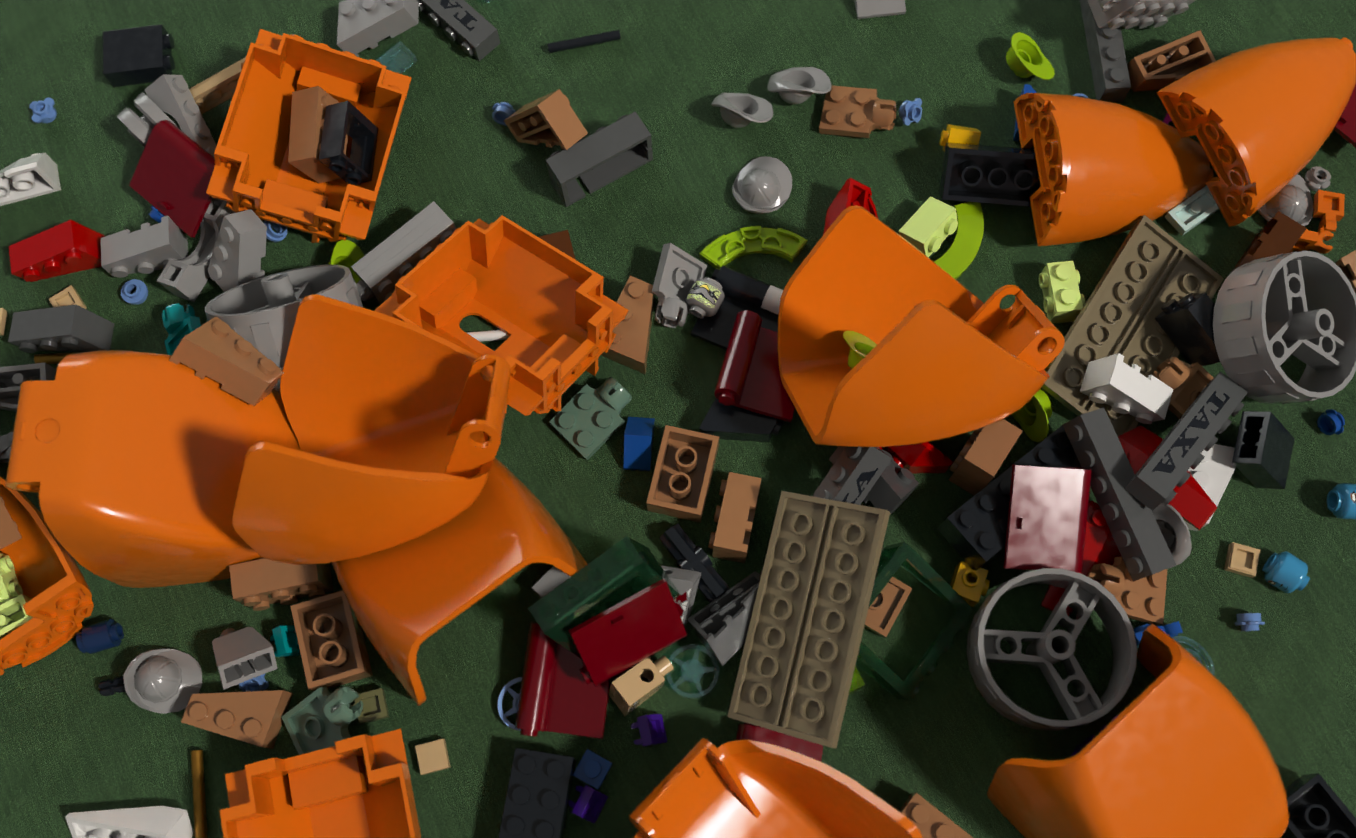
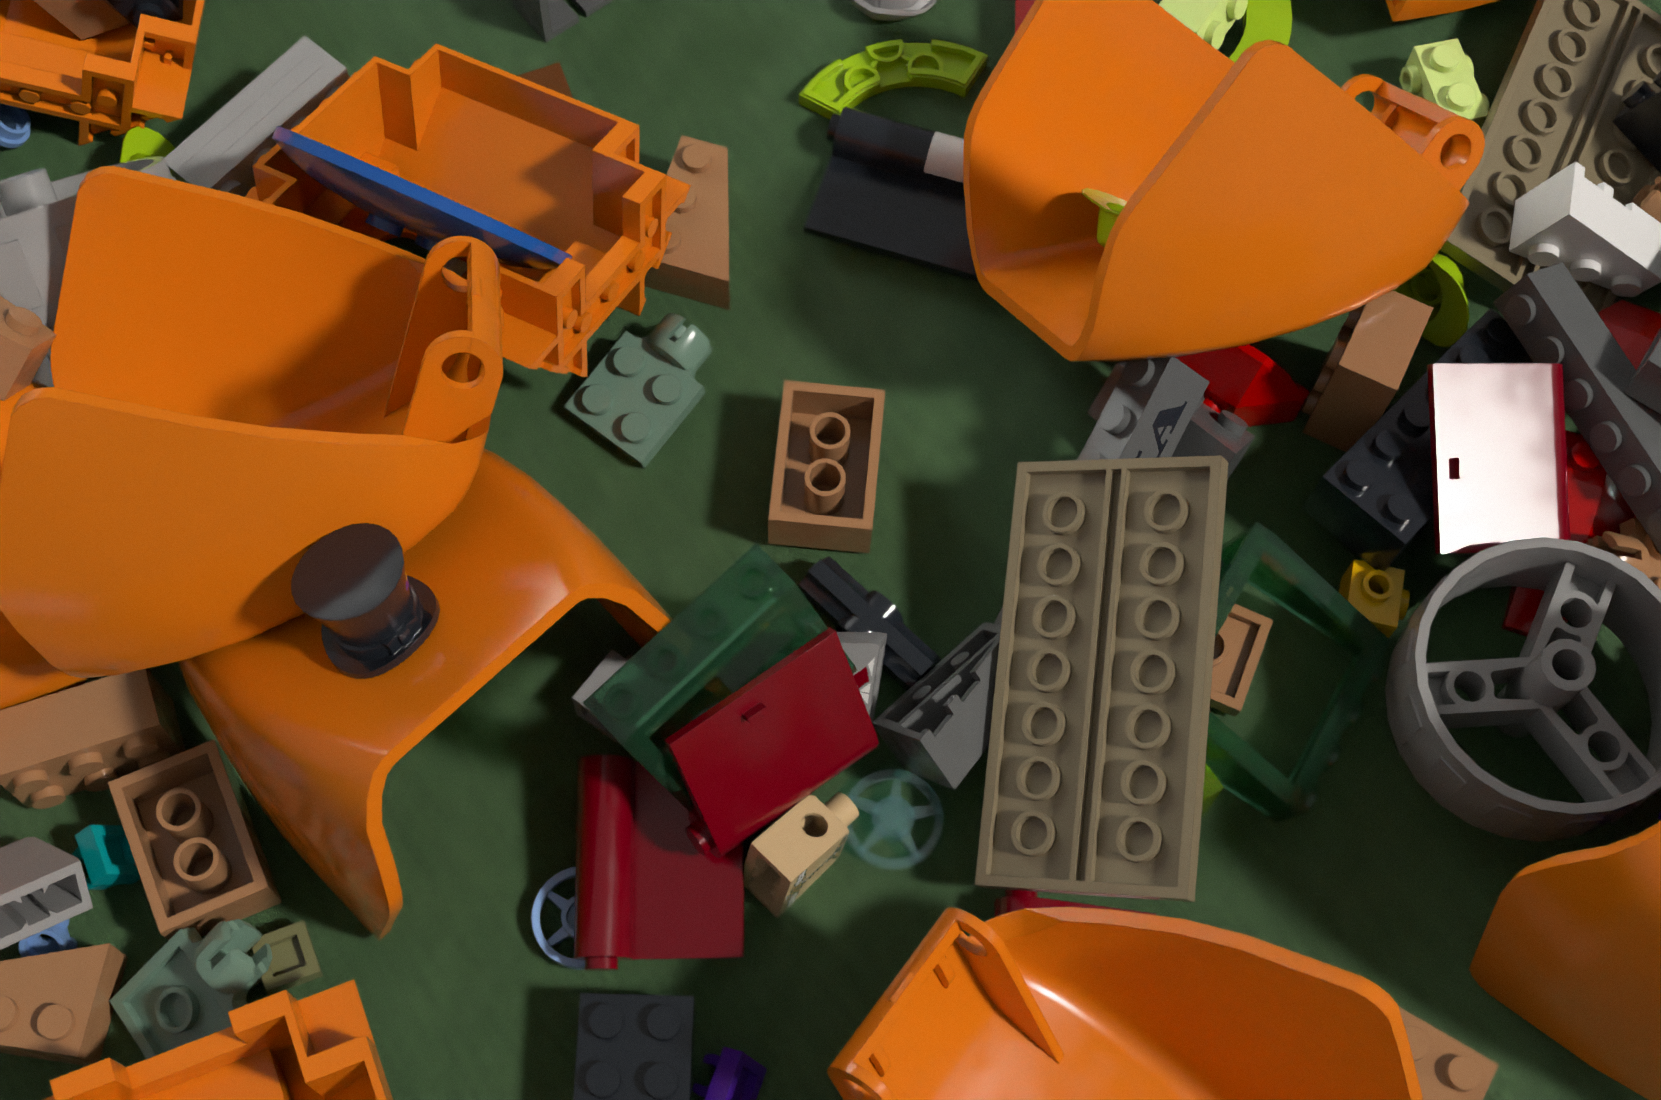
camera: 15 degrees left, 5 degrees down
(418, 552) = (364, 599): none -> black hat
(432, 756) = (417, 1038): tan tile -> none
(480, 314) = (402, 204): none -> blue dish
(592, 769) = (730, 1020): blue plate -> none
(638, 443) = (735, 430): blue slope -> none
(651, 730) = (832, 932): dark purple tile -> none
(673, 282) = (770, 146): light grey plate -> none
(705, 297) = (822, 161): light grey head -> none
(735, 517) = (933, 535): medium nougat wedge -> none
(739, 424) = (920, 359): black slope -> none
(752, 372) = (927, 275): dark red door -> none

